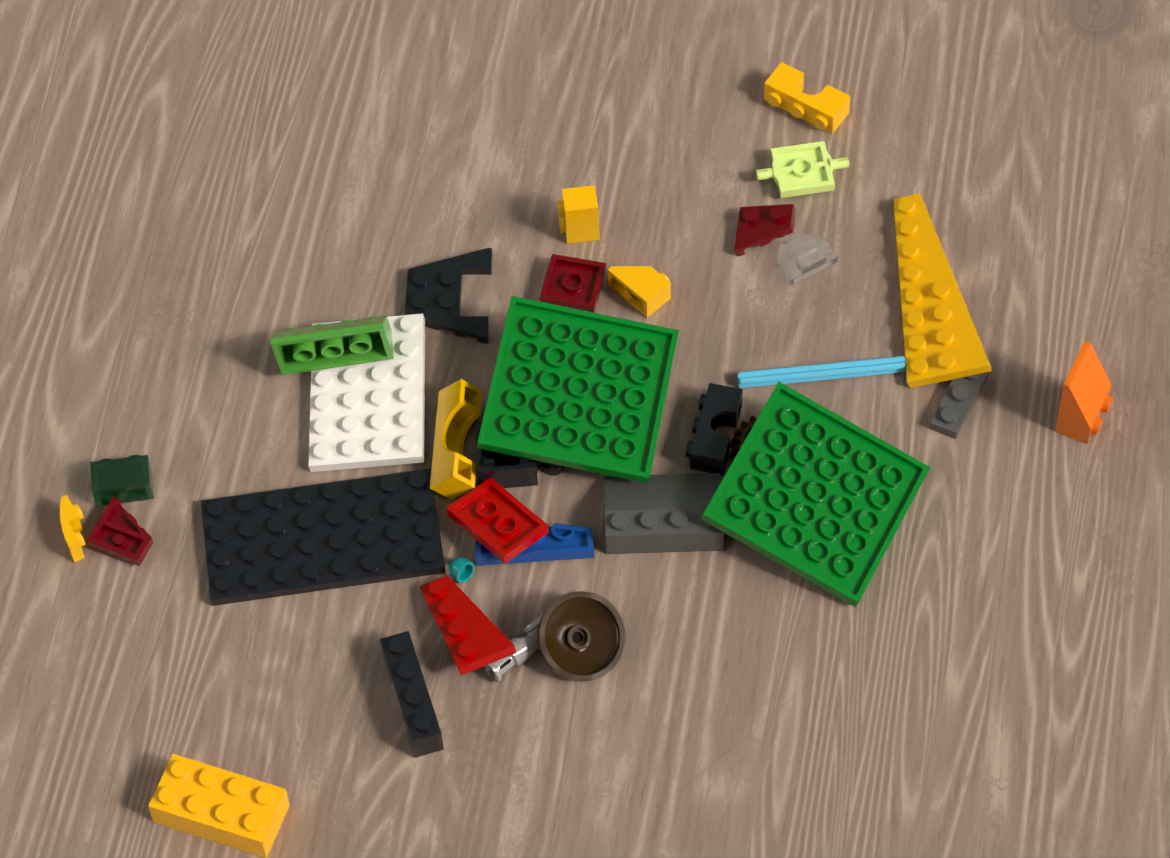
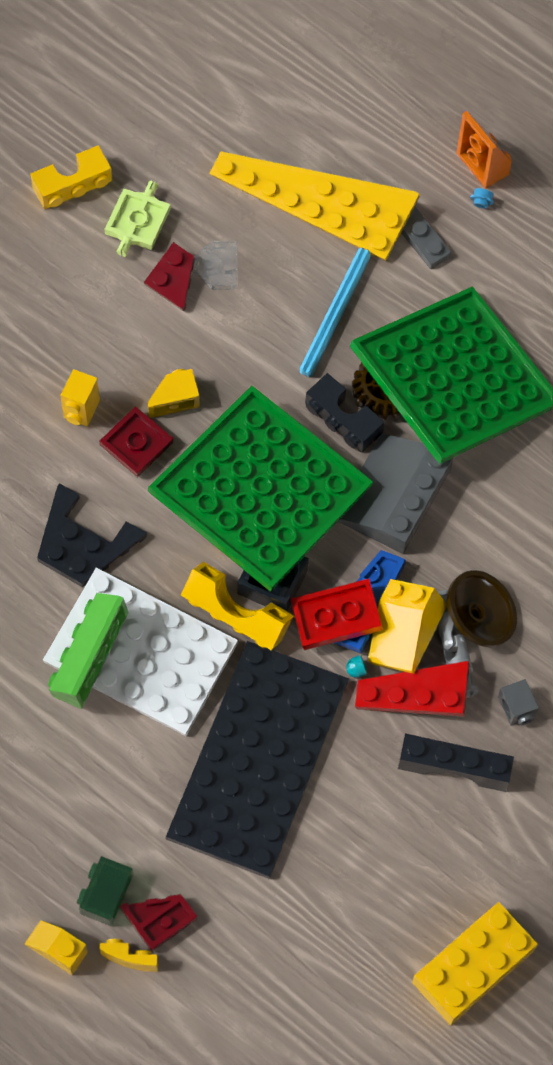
camera: 65 degrees left, 10 degrees up
(49, 473) = (57, 946): none -> yellow slope
(507, 718) = (518, 703): none -> dark grey brick
(524, 581) = (408, 622): none -> yellow slope
(1037, 430) = (482, 198): none -> dark azure plate

